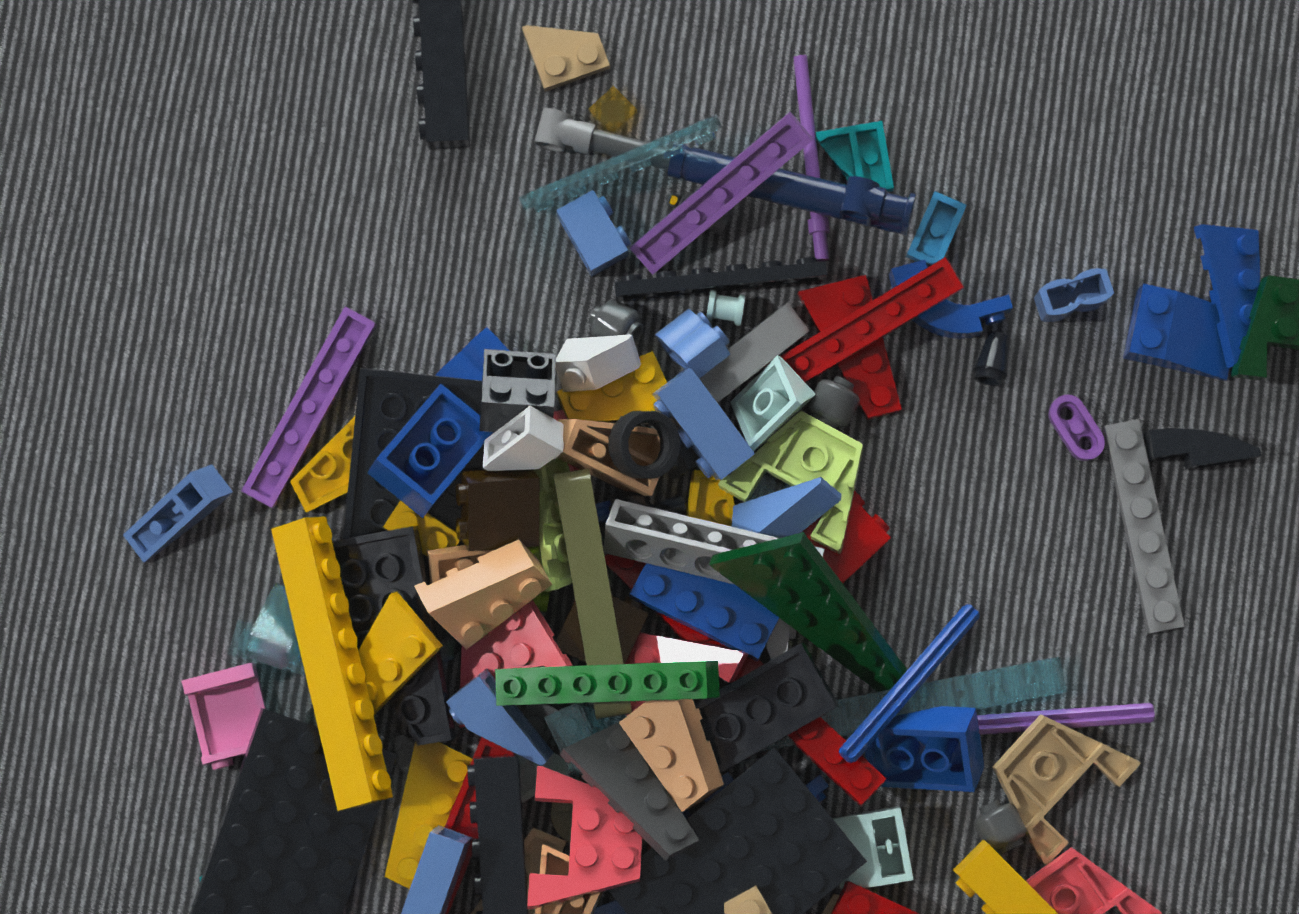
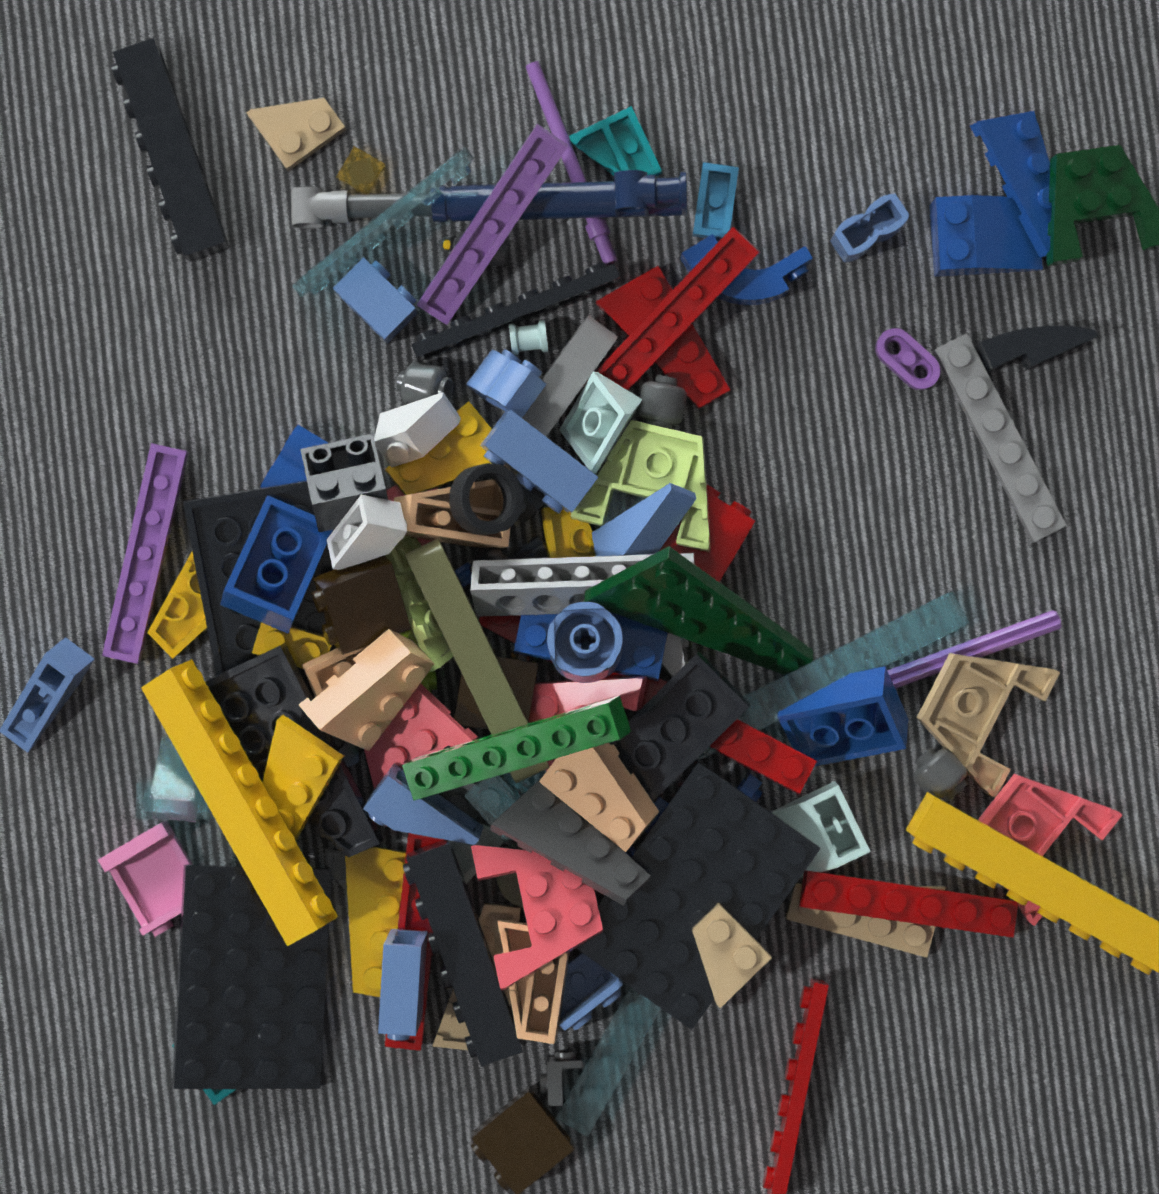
camera: 15 degrees left, 5 degrees up
(679, 601) = (569, 627): none -> medium blue brick
(909, 684) = (813, 660): blue axle -> none
(993, 360) = (806, 316): black cone -> none

